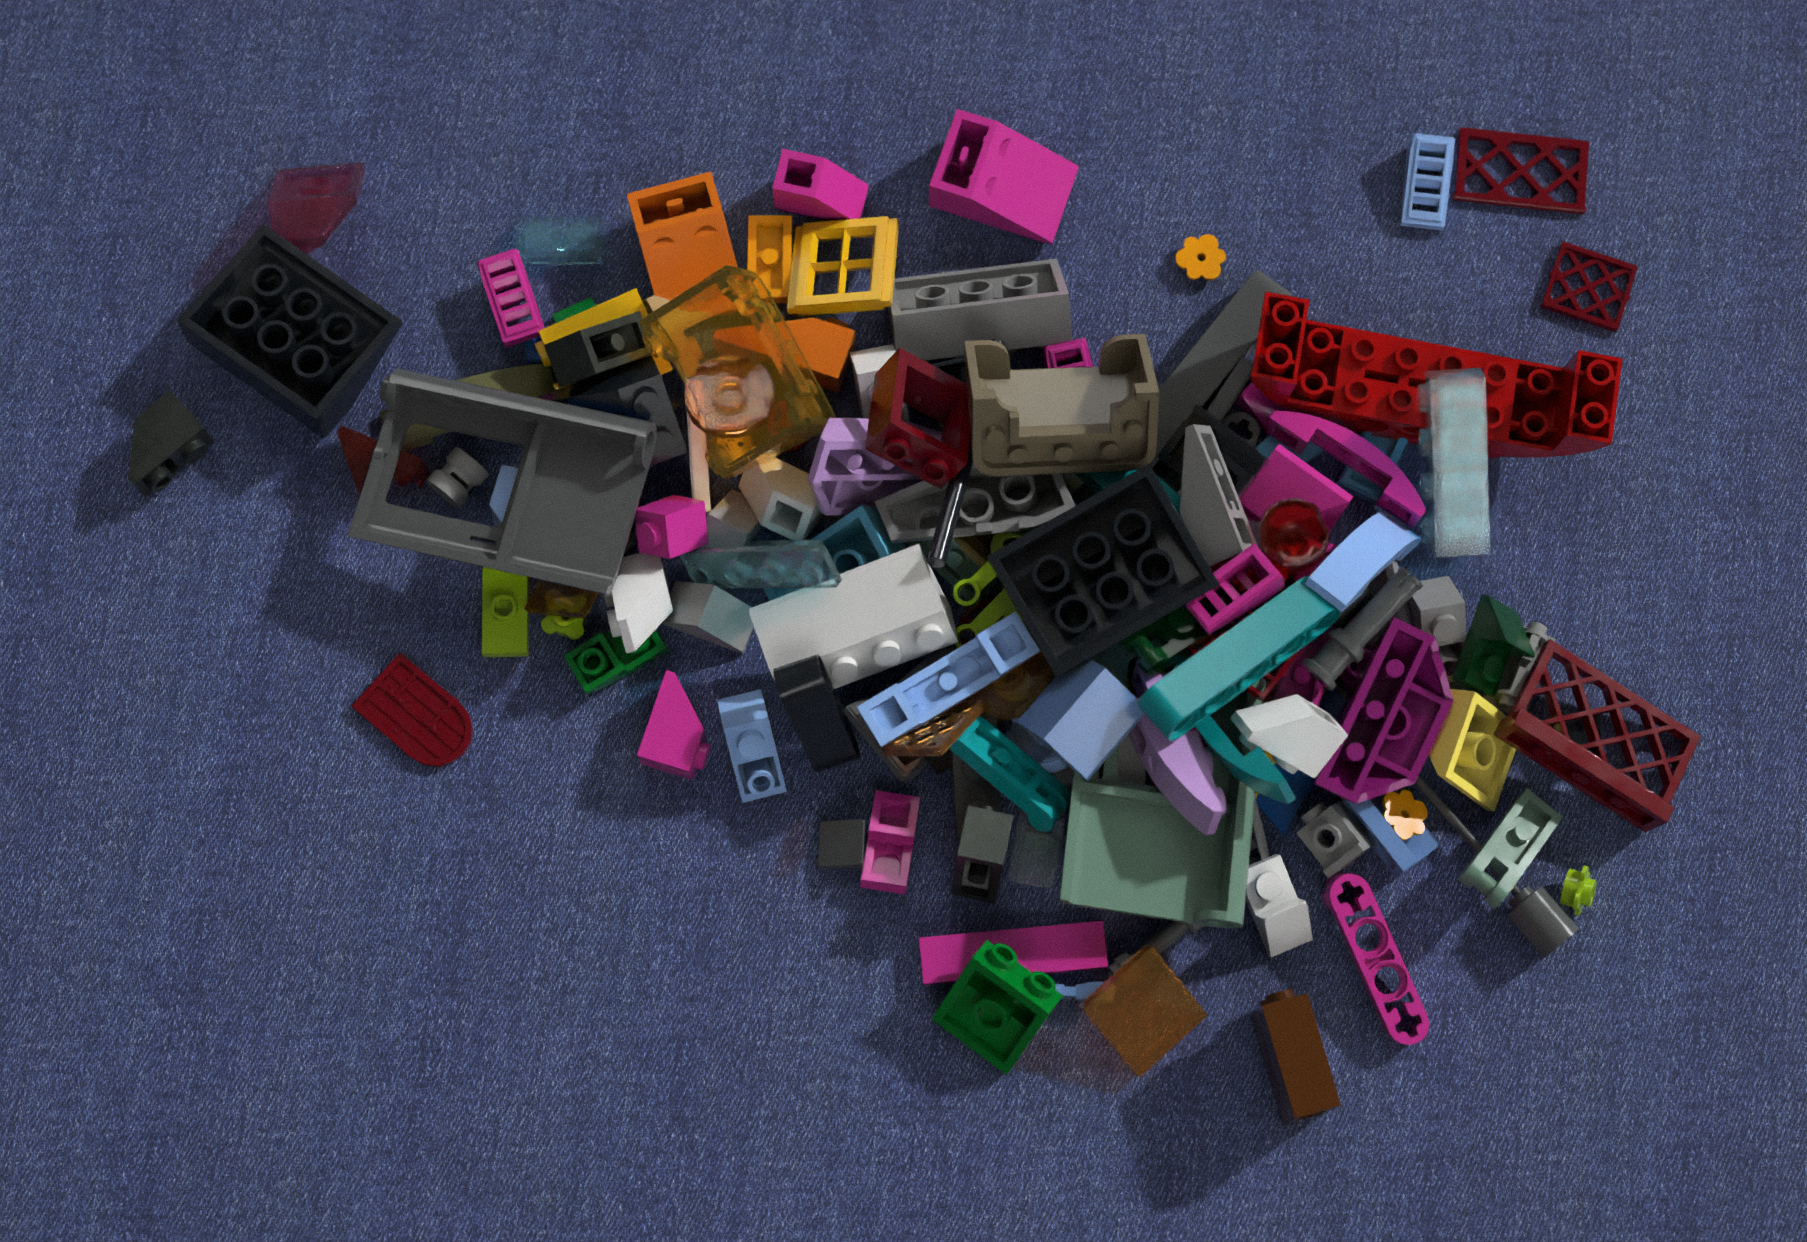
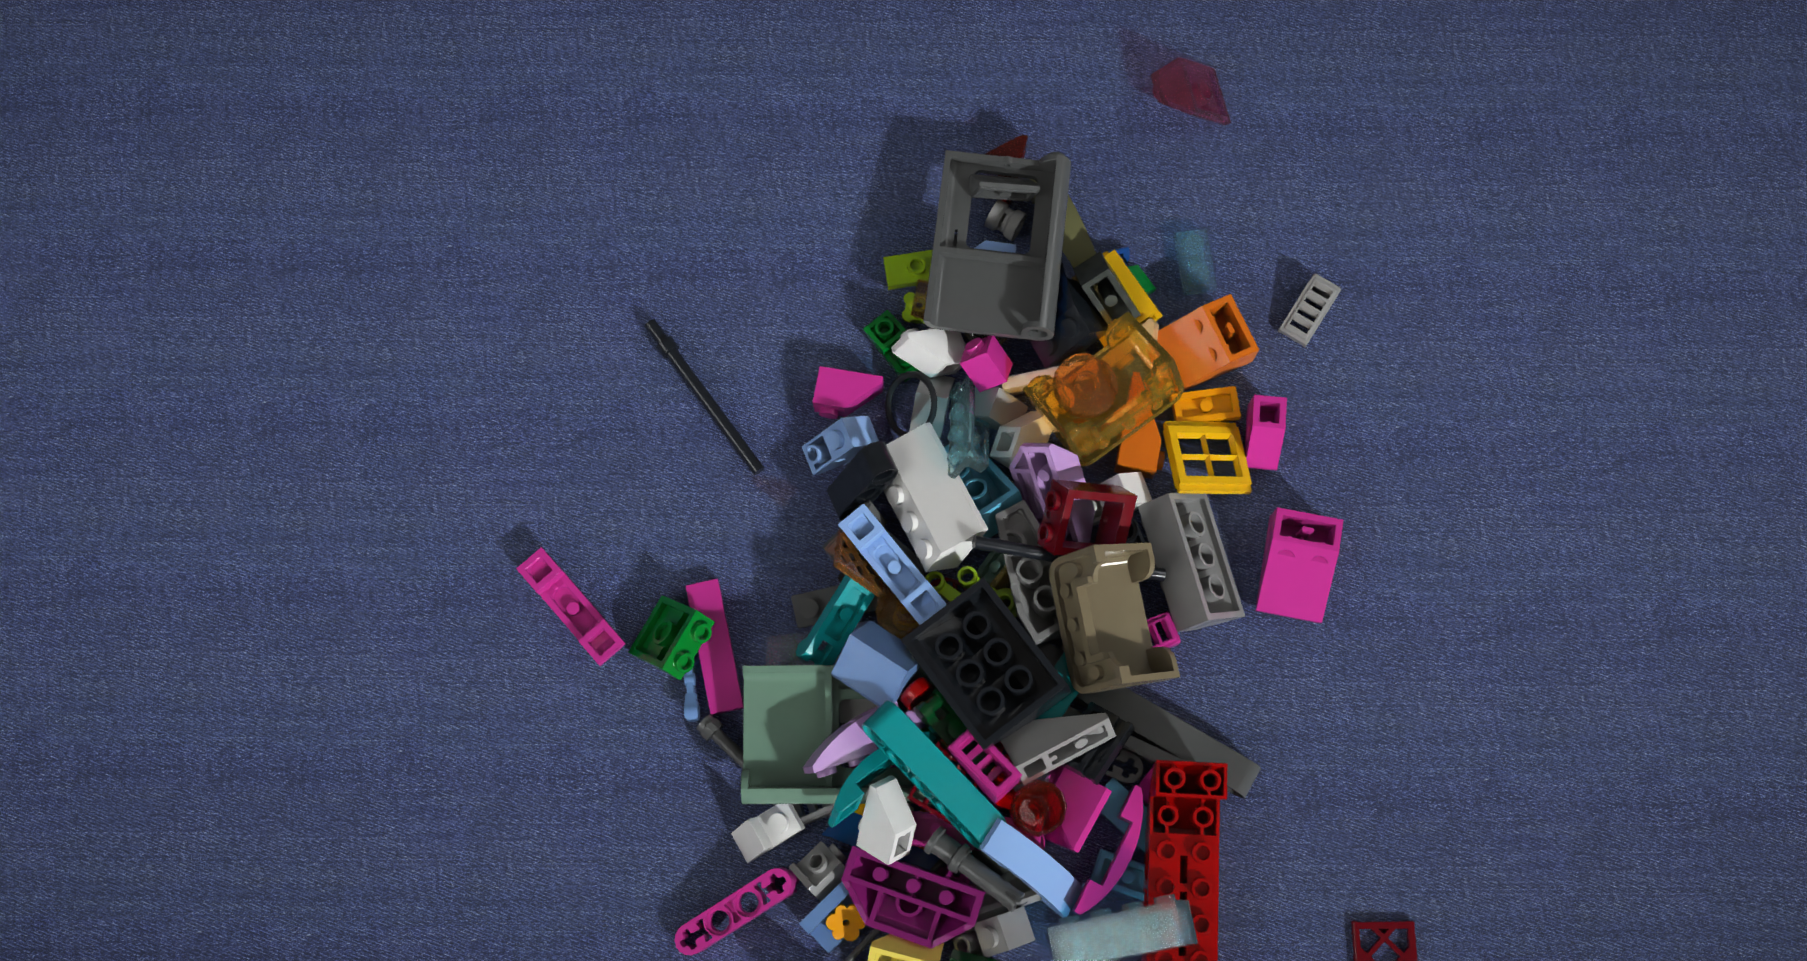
camera: 85 degrees right, 0 degrees up
(163, 443) = (1002, 30): pearl dark grey slope -> none
(290, 330) = (1092, 92): black slope -> none
(416, 466) = (1002, 188): none -> dark grey slope
(416, 714) = (837, 224): dark red window -> none
(501, 273) = (1159, 222): dark pink slope -> none
(567, 974) = (669, 349): none -> black bar
(650, 84) = (1321, 293): none -> light grey slope
(706, 602) = (909, 374): none -> black tyre
(842, 844) = (778, 518): dark grey slope -> none
(890, 842) = (784, 551): dark pink slope -> none
(934, 1147) = (571, 606): none -> dark pink slope
(981, 853) = (779, 611): pearl dark grey slope -> none
(1124, 671) = (916, 692): none -> red tile
(1143, 1010) = (680, 742): clear orange tile -> none
(1206, 248) = (1274, 727): light orange plant -> none
(1294, 1056) = (651, 853): reddish brown brick -> none
(1430, 154) = (1390, 897): light blue slope -> none

